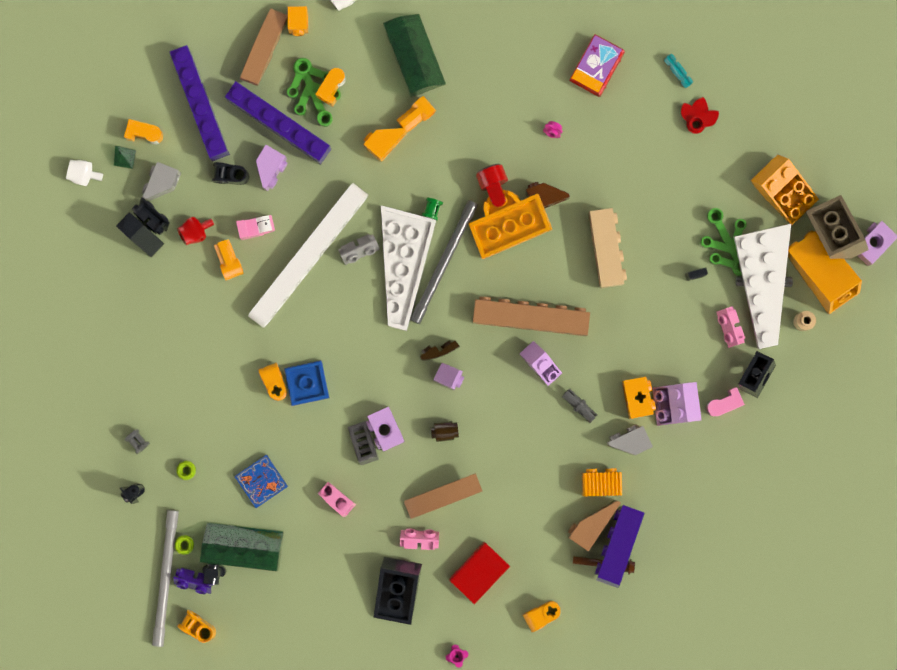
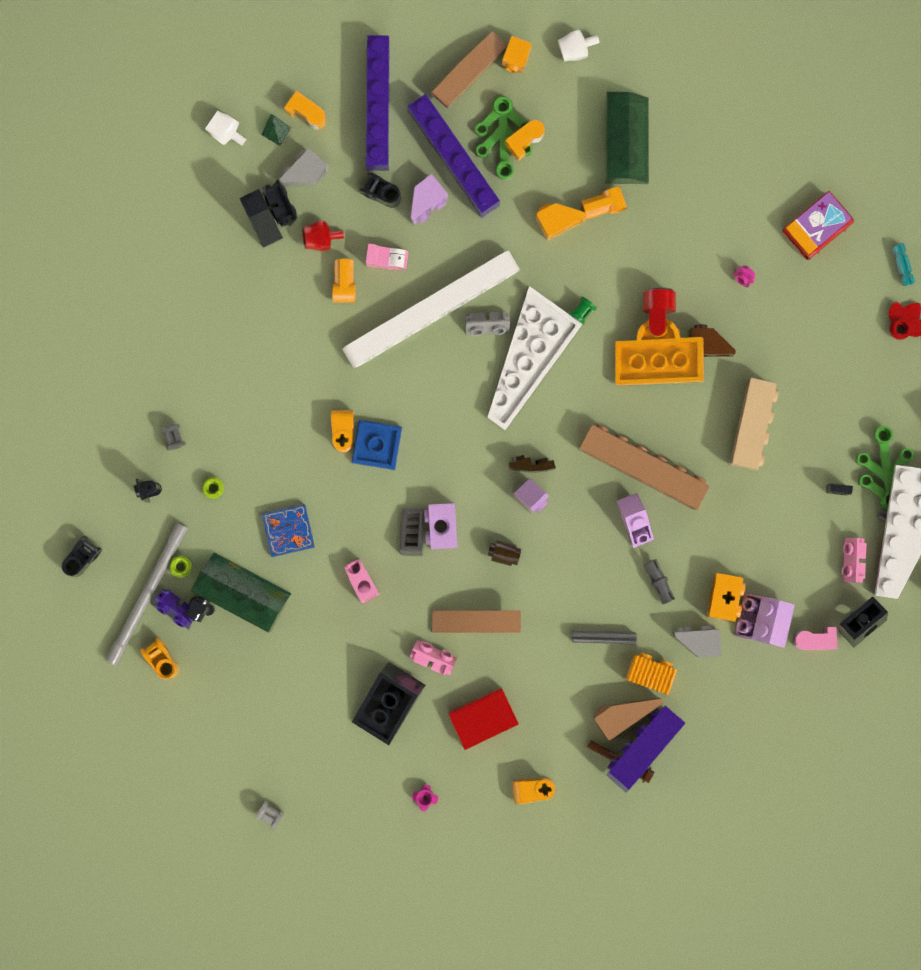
camera: 20 degrees right, 0 degrees up
(100, 568) = (81, 556): none -> black piece
(421, 307) = (531, 411): dark grey piece -> none
(552, 468) = (604, 637): none -> dark grey axle

